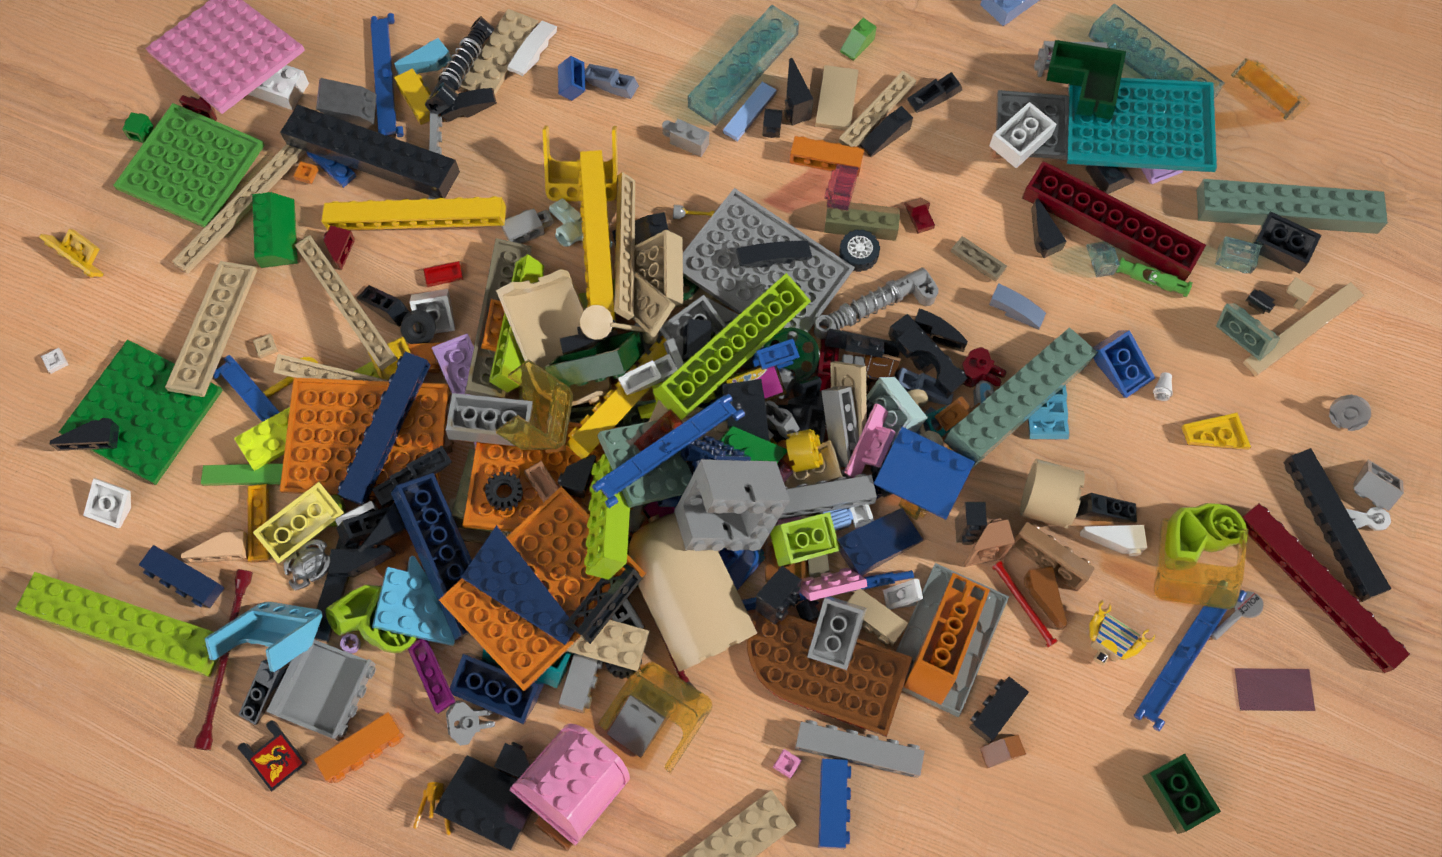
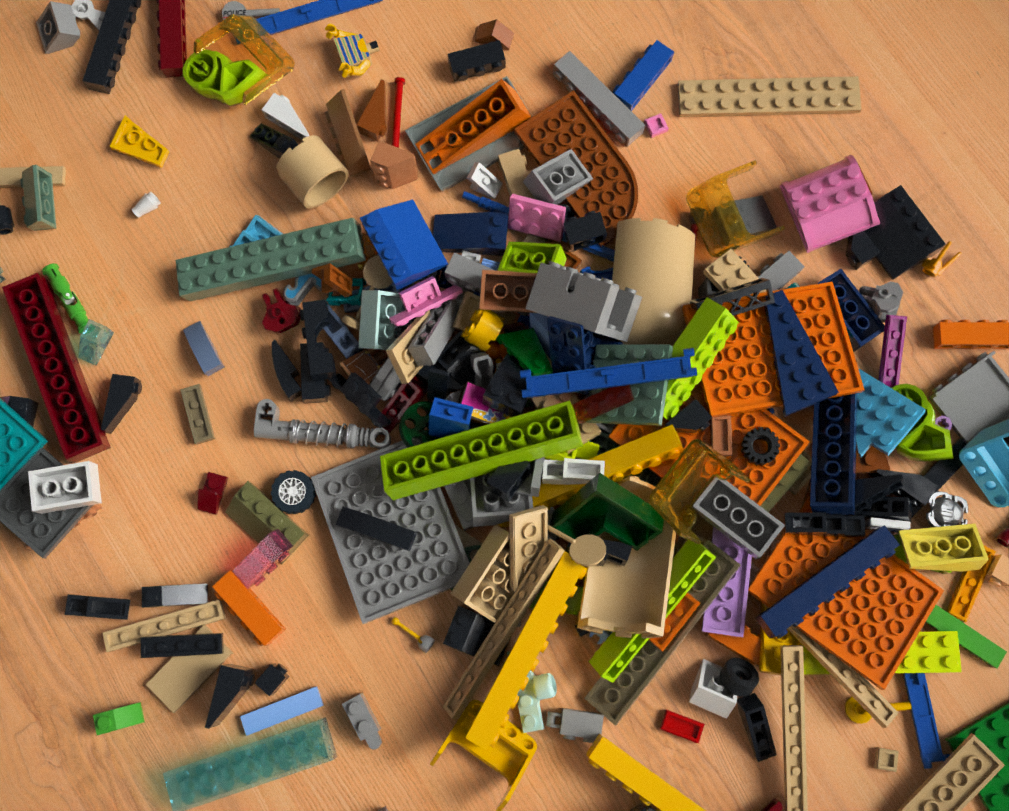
camera: 145 degrees left, 10 degrees up
(808, 485) = (506, 290): none -> nougat slope
(853, 104) = (182, 645): none -> black tile
(970, 522) = (393, 187): black brick -> none
(1123, 362) = (159, 245): blue slope -> none
(1350, 412) = (24, 87): light grey tile -> none

